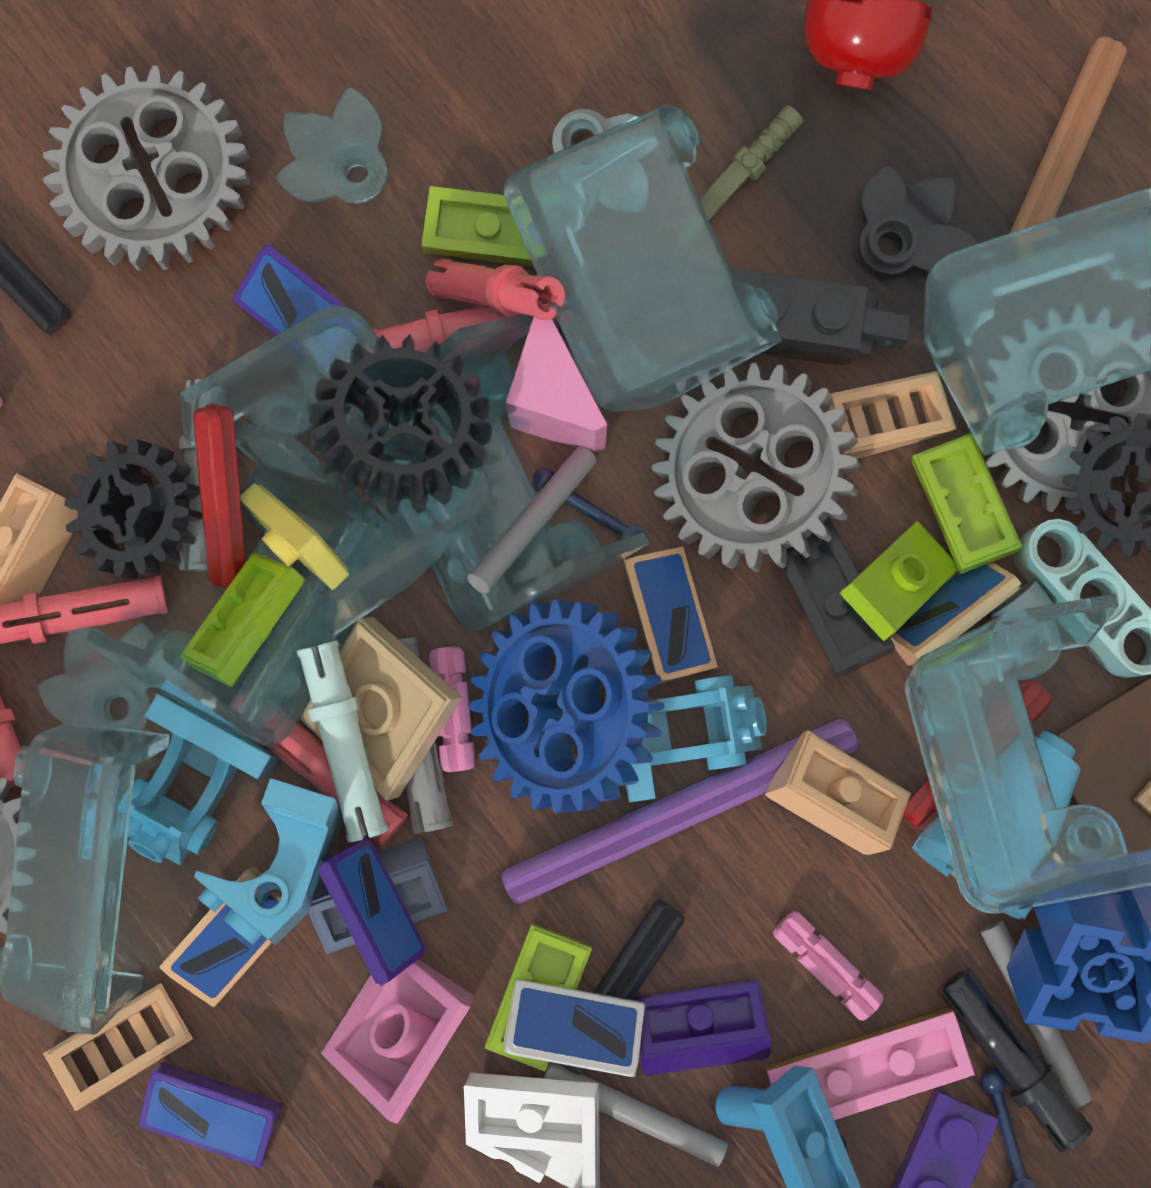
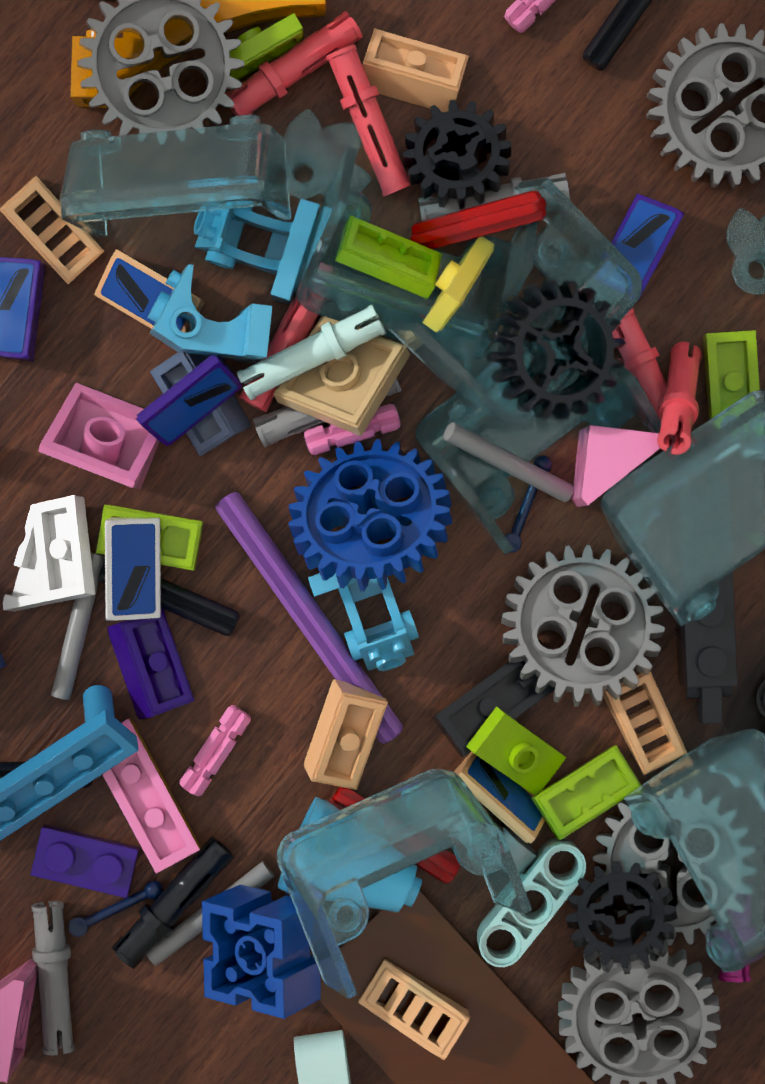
camera: 80 degrees right, 5 degrees up
(669, 614) = (457, 581): slope -> none

